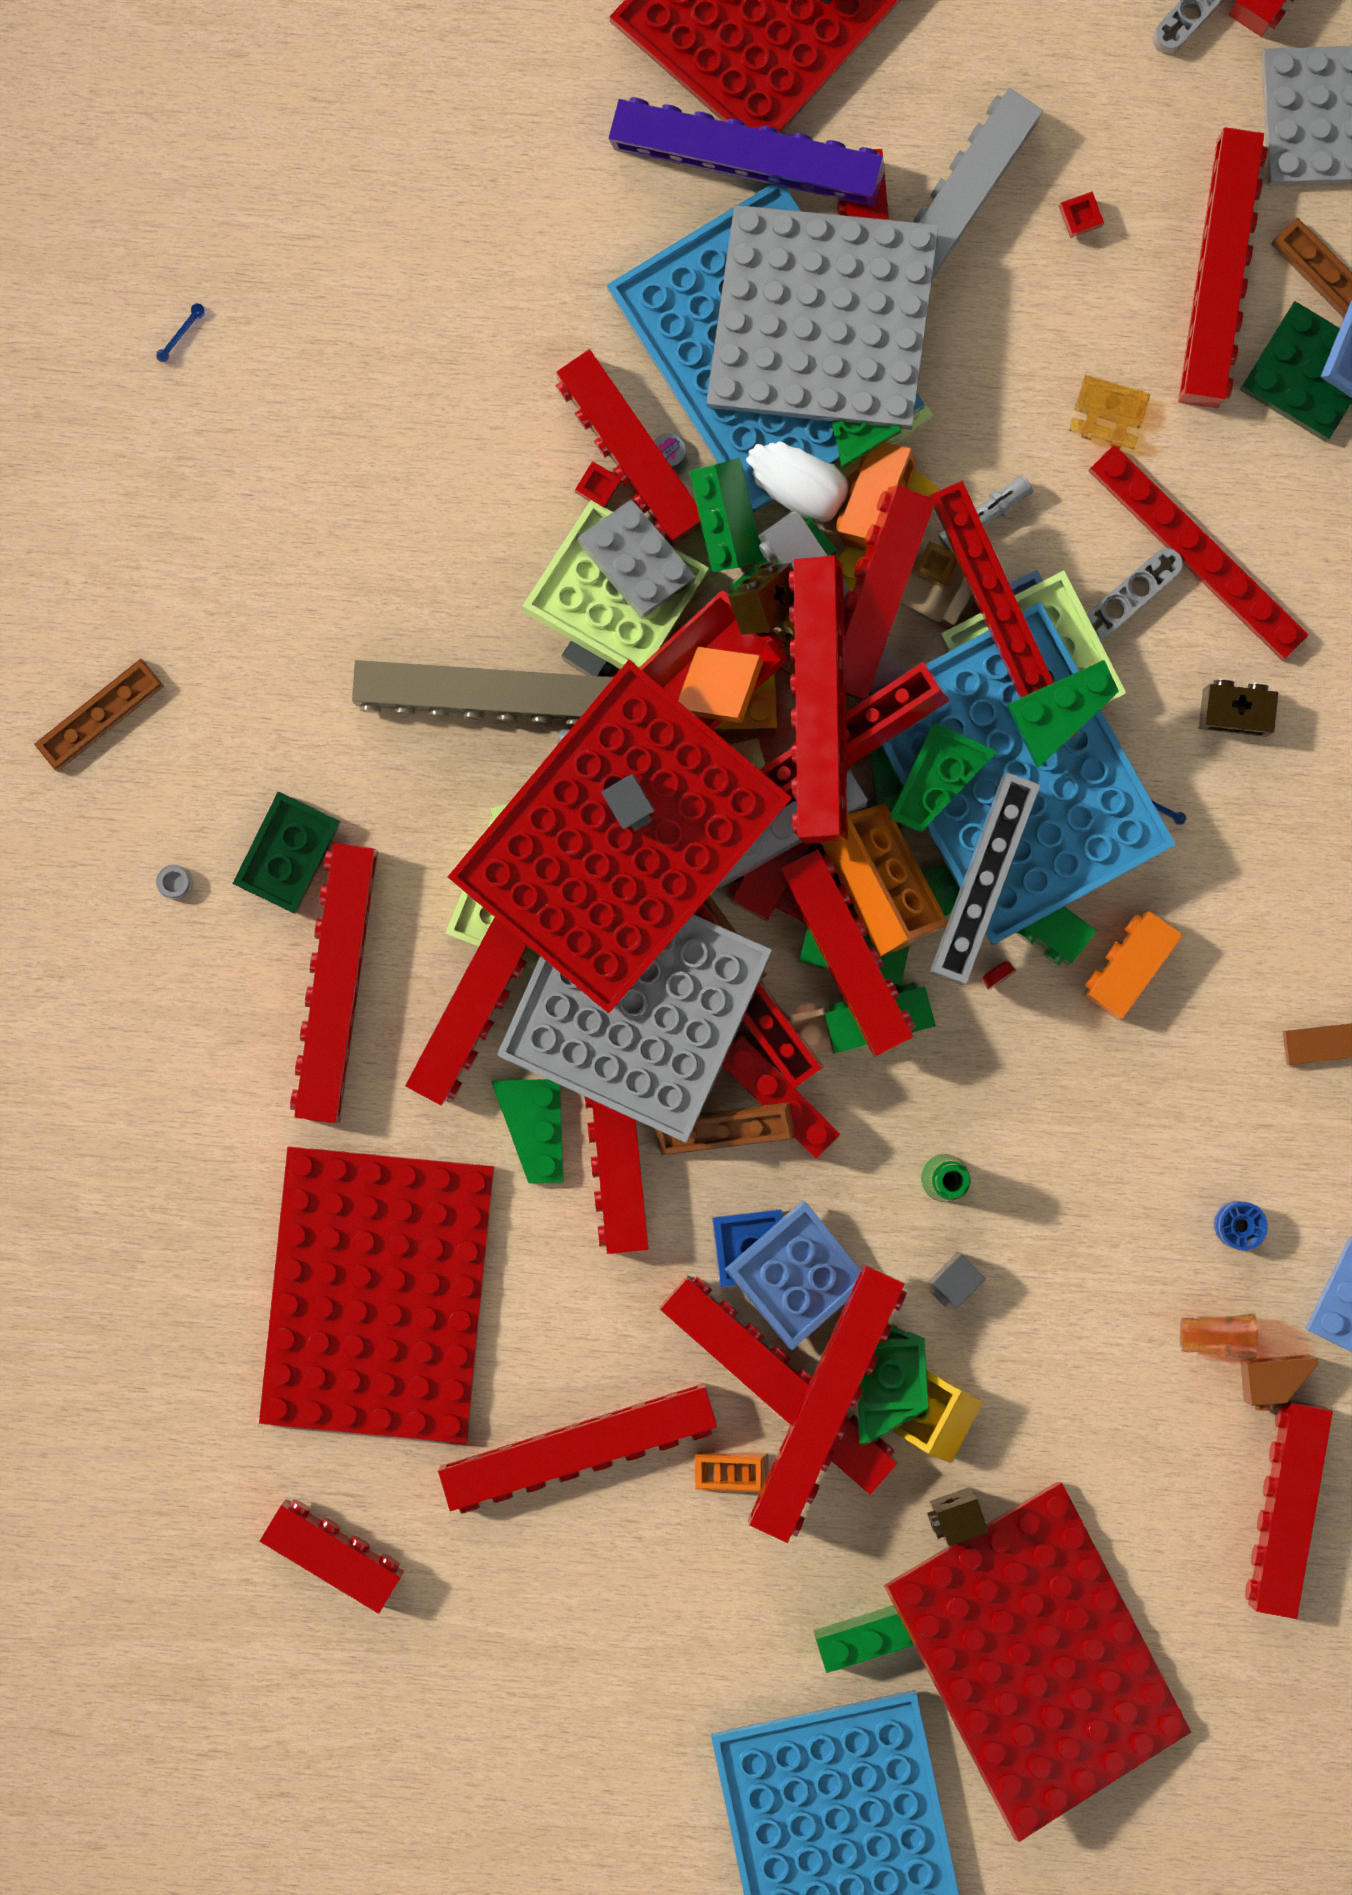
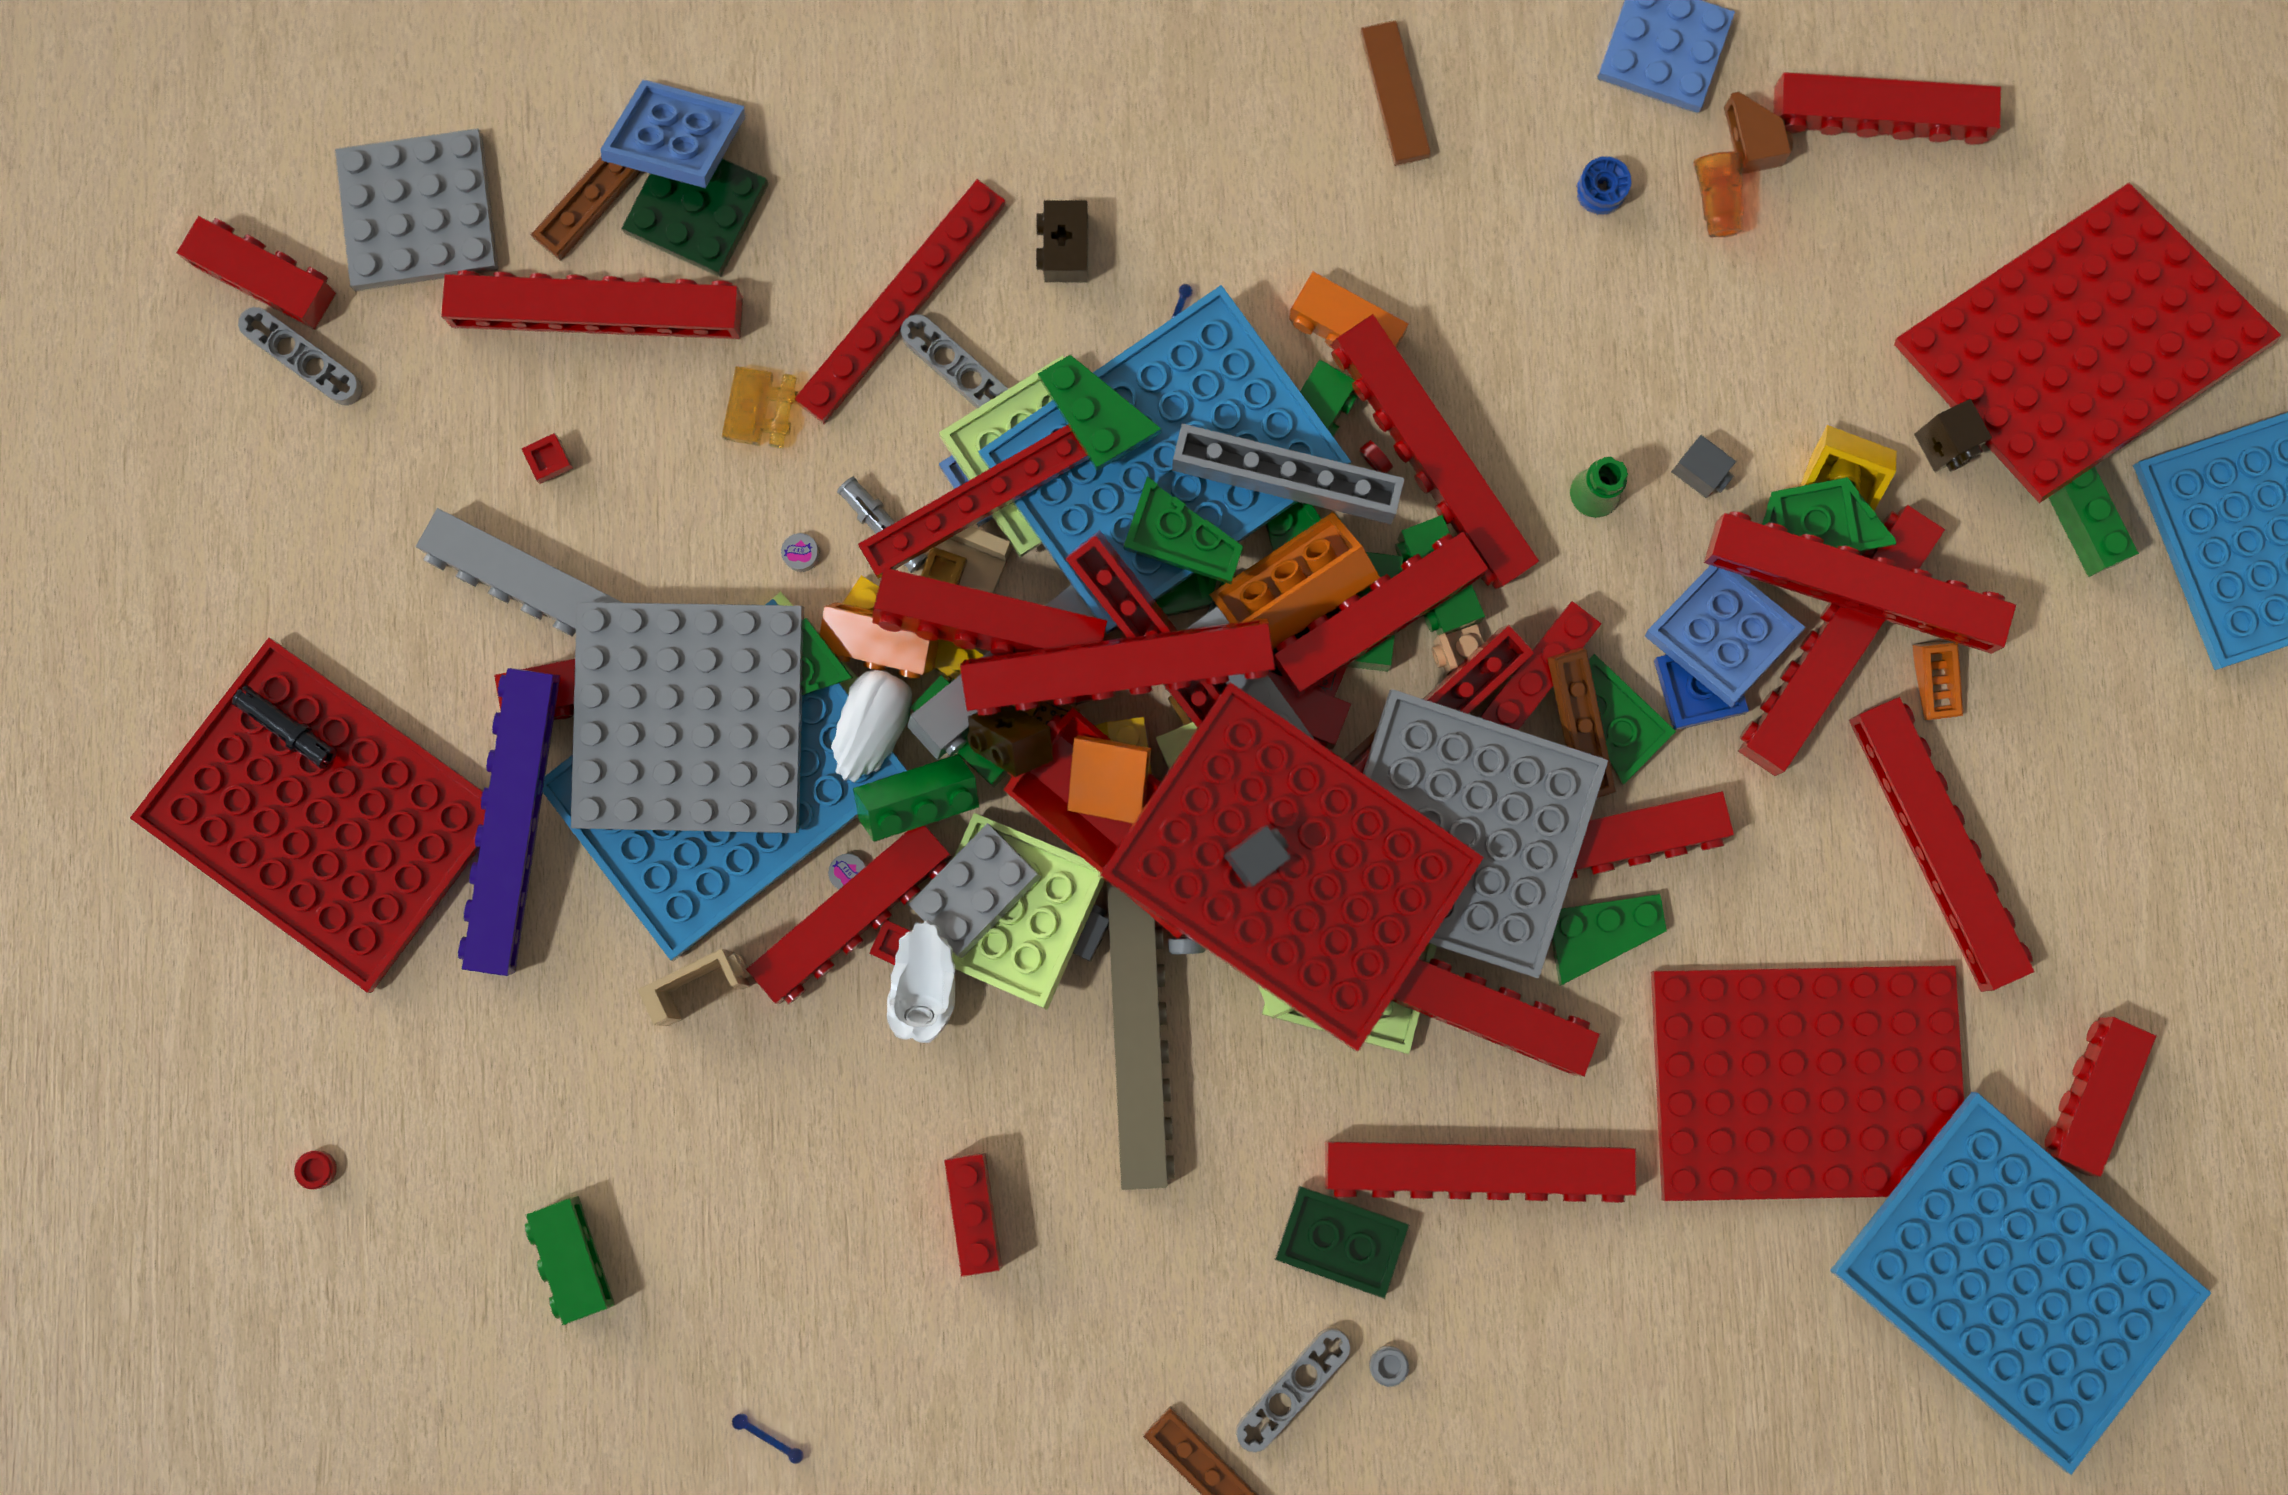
camera: 90 degrees left, 5 degrees down
(167, 792) = (1297, 1393): none -> light grey beam
(176, 1454) = (2021, 1282): none -> dark azure plate
(350, 529) = (973, 1214): none -> red brick
(353, 174) = (568, 1260): none -> green brick
(556, 502) = (921, 985): none -> white hair
(570, 270) = (657, 994): none -> tan panel
(724, 1173) = (1628, 722): none -> green wing
(968, 437) = (800, 552): none -> light grey tile
(995, 1025) = (1432, 450): none -> red brick

